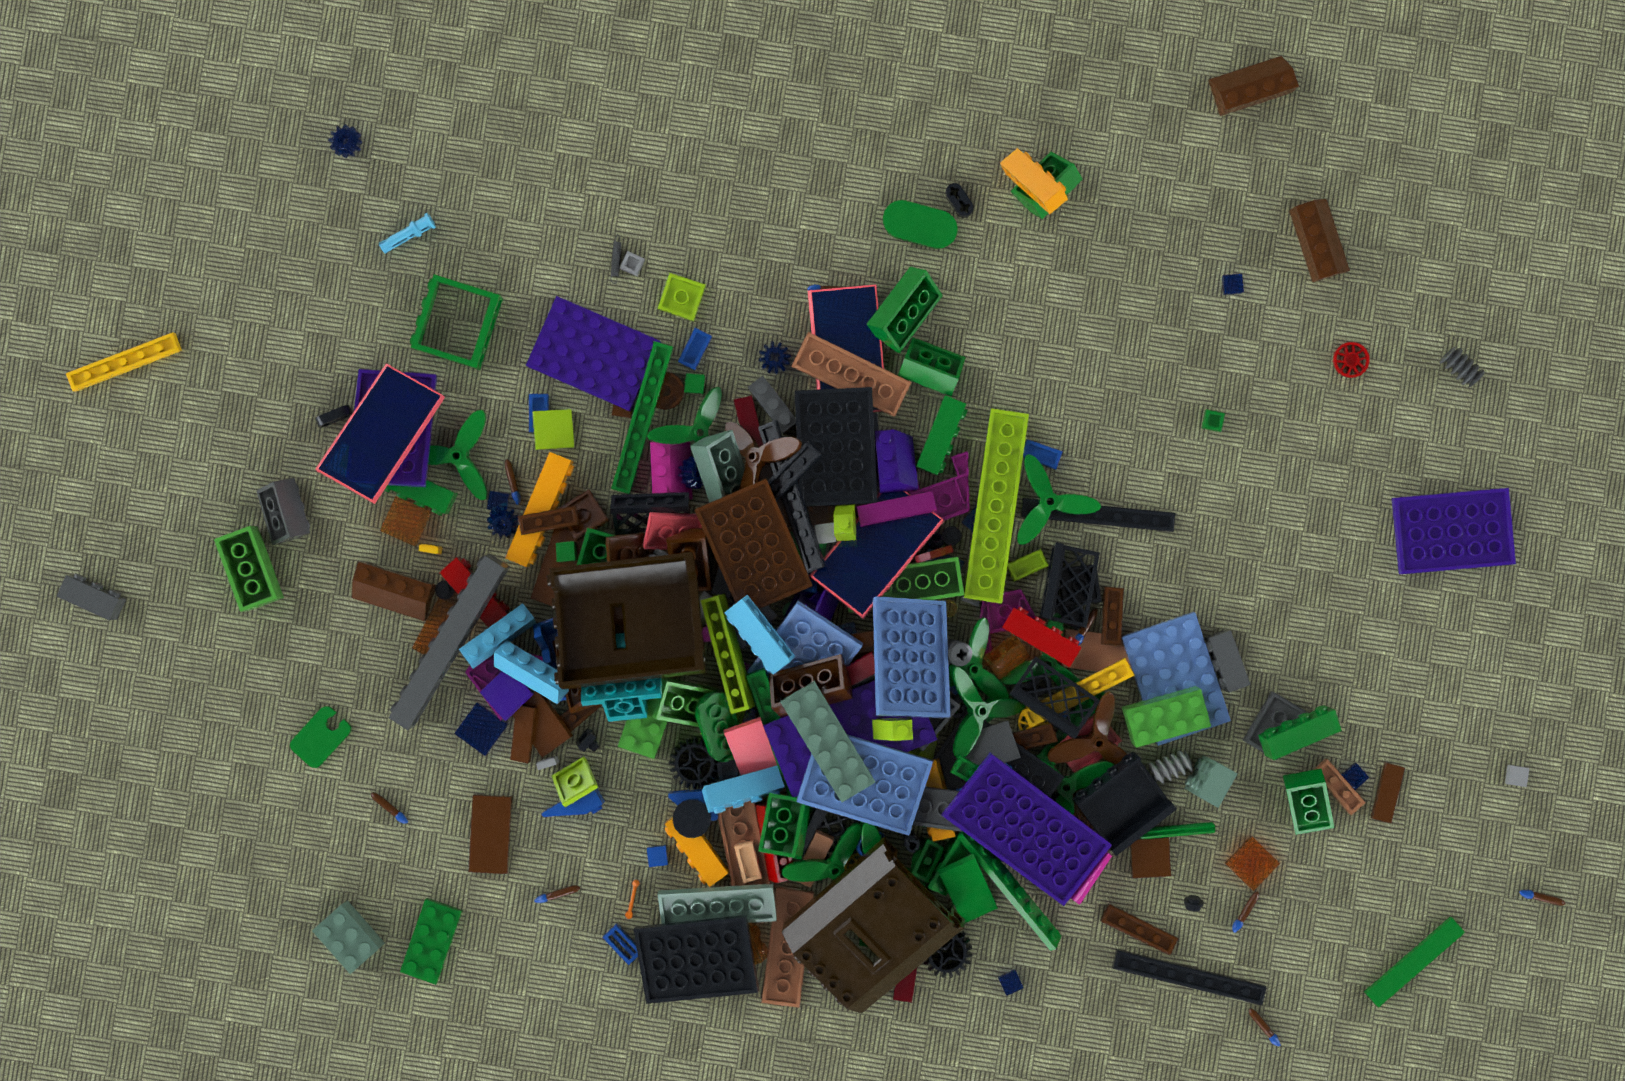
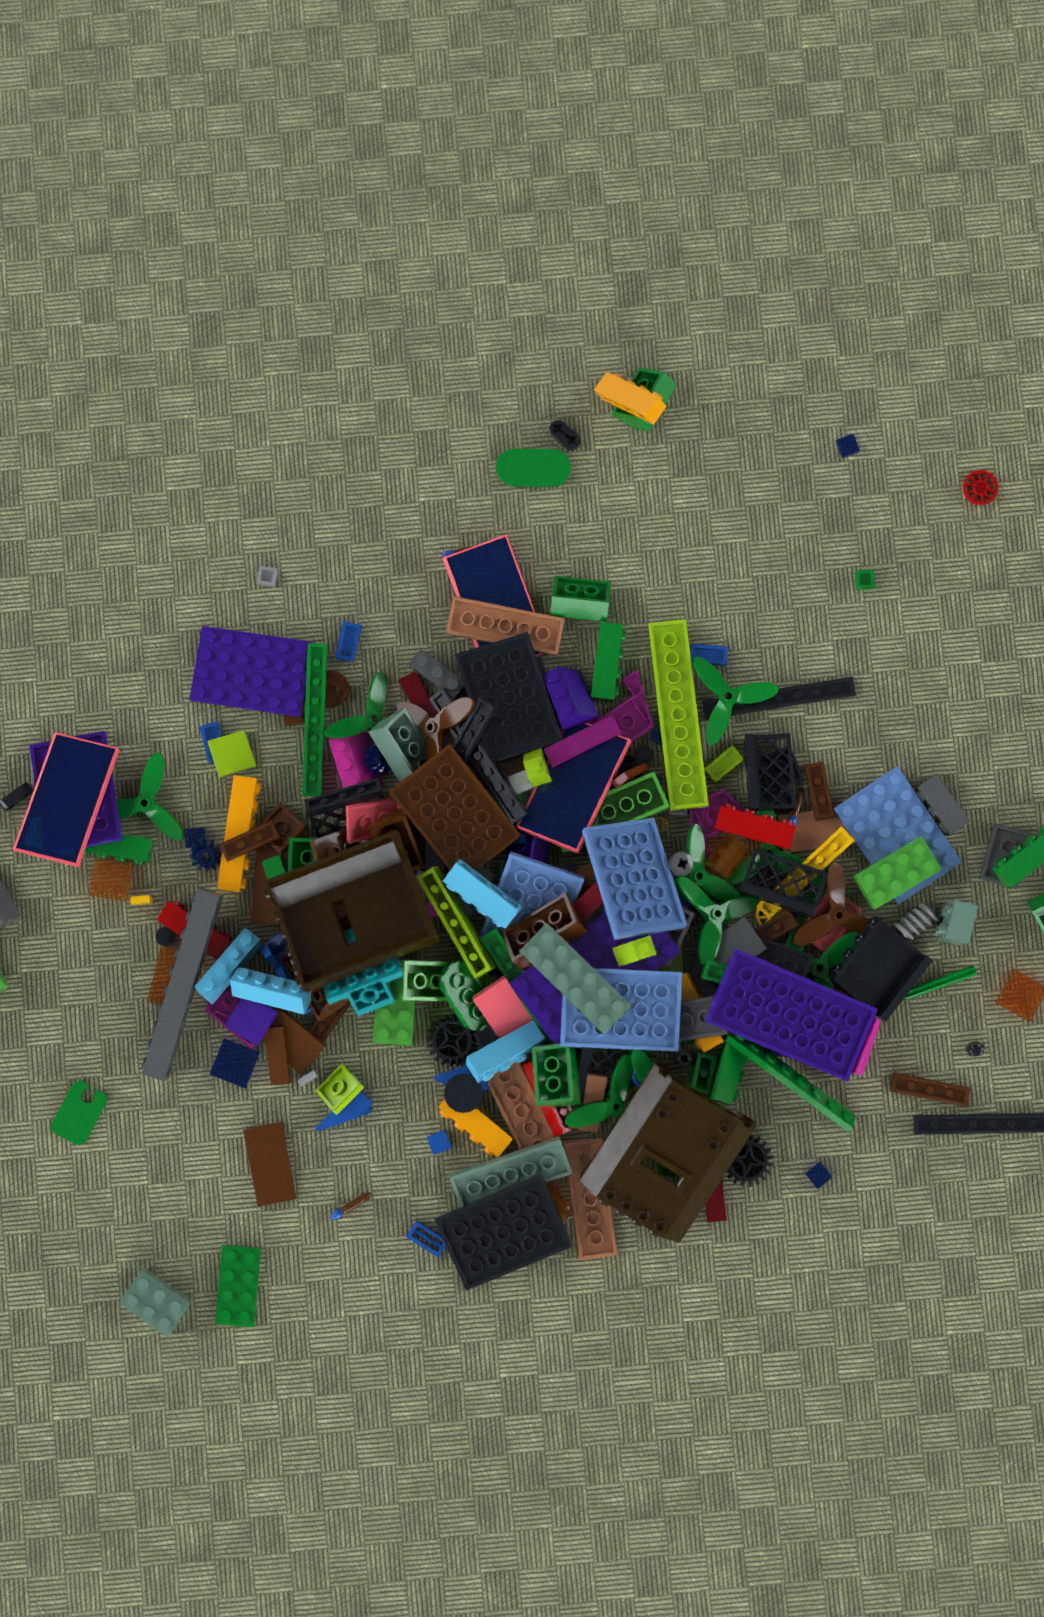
camera: 10 degrees left, 5 degrees down
(388, 807) = (164, 1164): reddish brown piece -> none
(392, 590) = (114, 950): reddish brown slope -> none
(414, 229) = (50, 598): medium azure pin -> none
(485, 332) = (142, 683): green window -> none
(512, 482) = (204, 814): reddish brown piece -> none
(587, 740) = (341, 1046): black tile -> none
(615, 263) = (250, 576): dark grey piece -> none
(629, 914) = (426, 1208): orange hinge -> none
(681, 297) = (322, 595): lime tile -> none
(694, 383) = (356, 674): green tile -> none
(748, 861) = (529, 1122): light nougat tile -> none
(776, 351) = (428, 636): clear blue gear -> none
(905, 309) = (540, 550): green slope -> none
(968, 888) = (750, 1090): green tile -> none
(1150, 858) = (921, 1016): reddish brown tile -> none
(1245, 912) = (1024, 1059): reddish brown piece -> none
(1253, 85) = (814, 256): reddish brown slope -> none
(1319, 240) = (918, 383): reddish brown slope -> none

